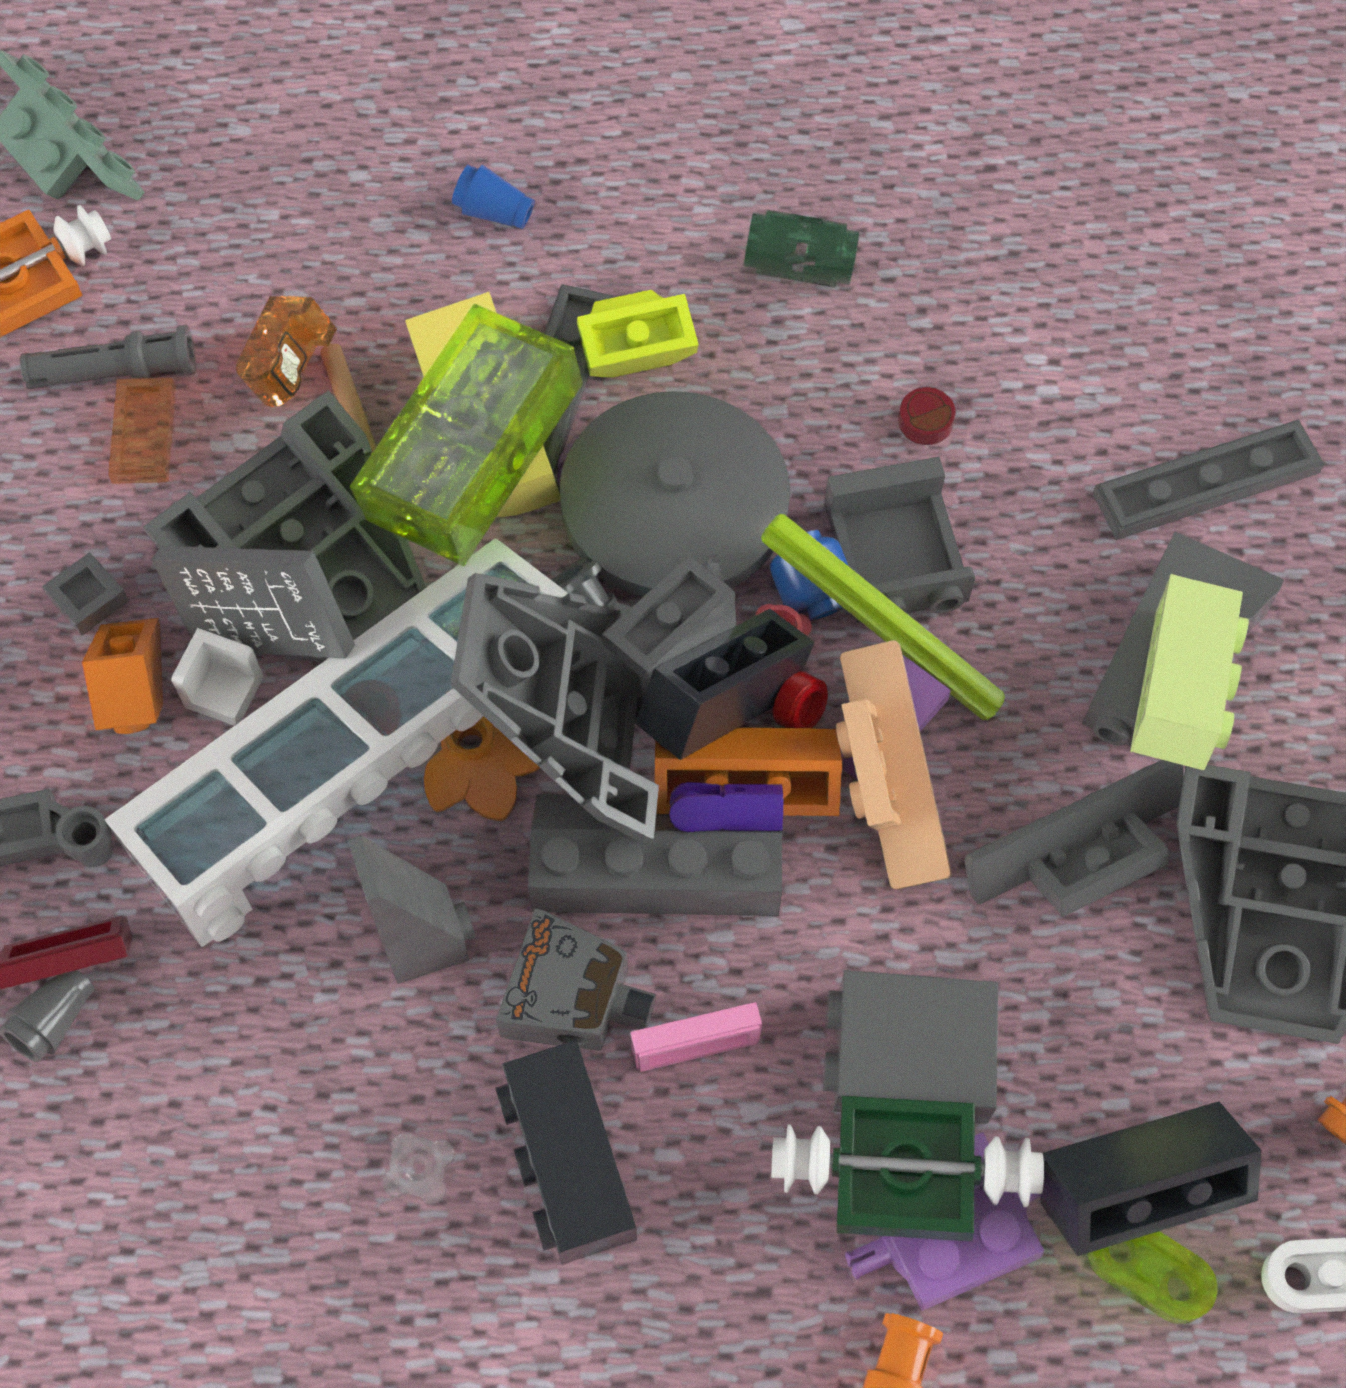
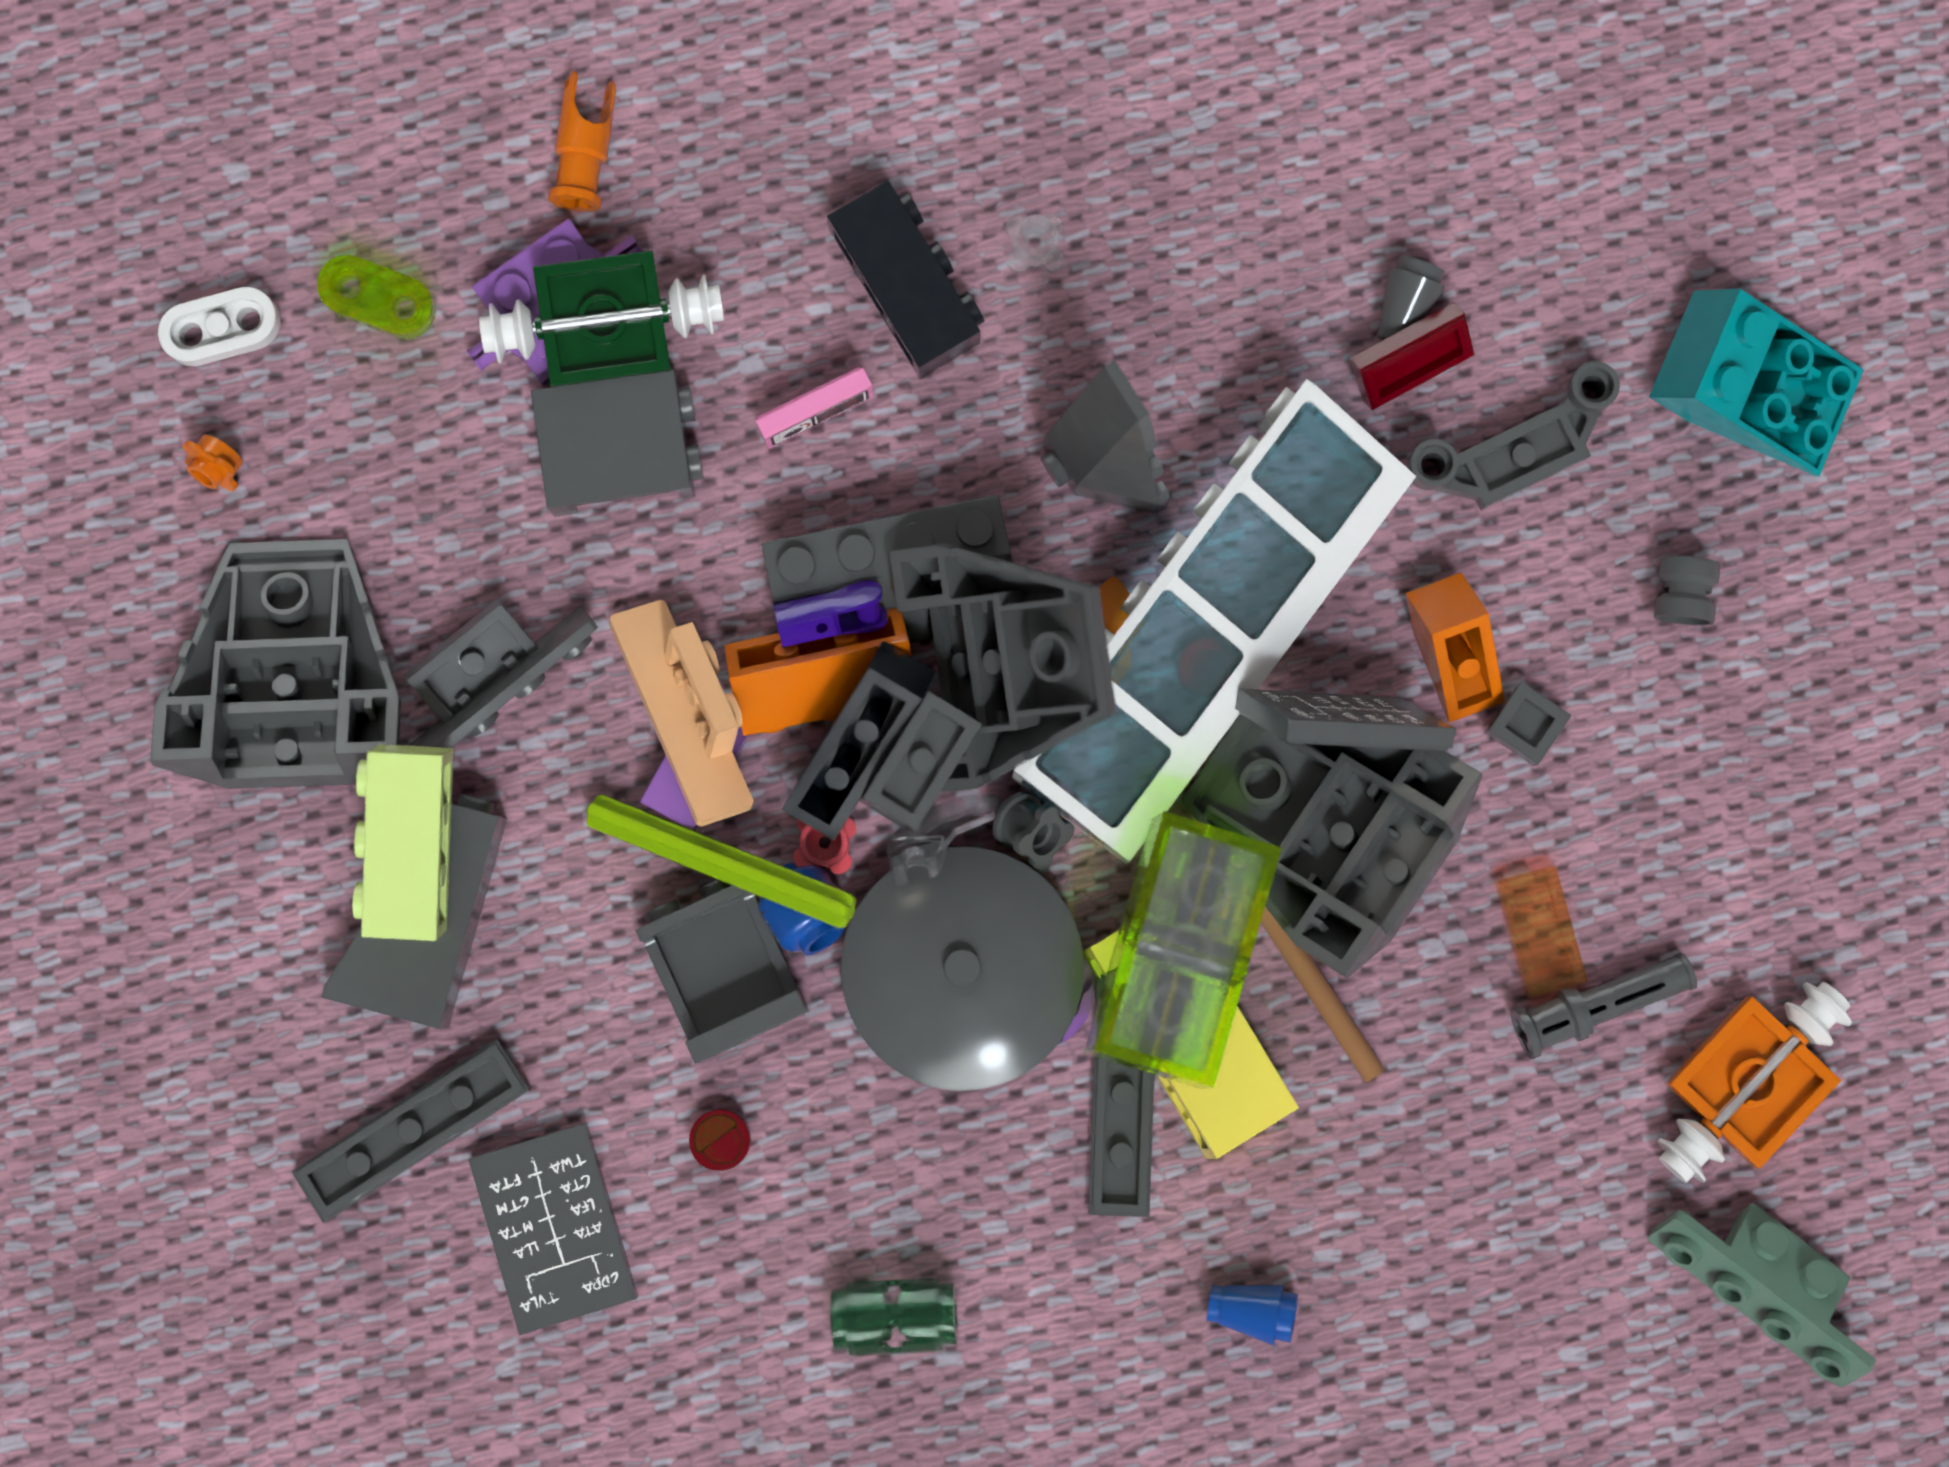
camera: 165 degrees right, 20 degrees up
(217, 677) = (1363, 658): white panel -> none
(282, 347) = (1424, 1050): clear orange leg -> none
(569, 988) = (939, 426): dark grey torso -> none
(636, 333) = (1052, 1165): neon yellow slope -> none
(800, 701) = (785, 763): red tile -> none
(1089, 380) = (553, 1228): none -> dark grey tile
(1150, 1177) = (387, 363): black brick -> none

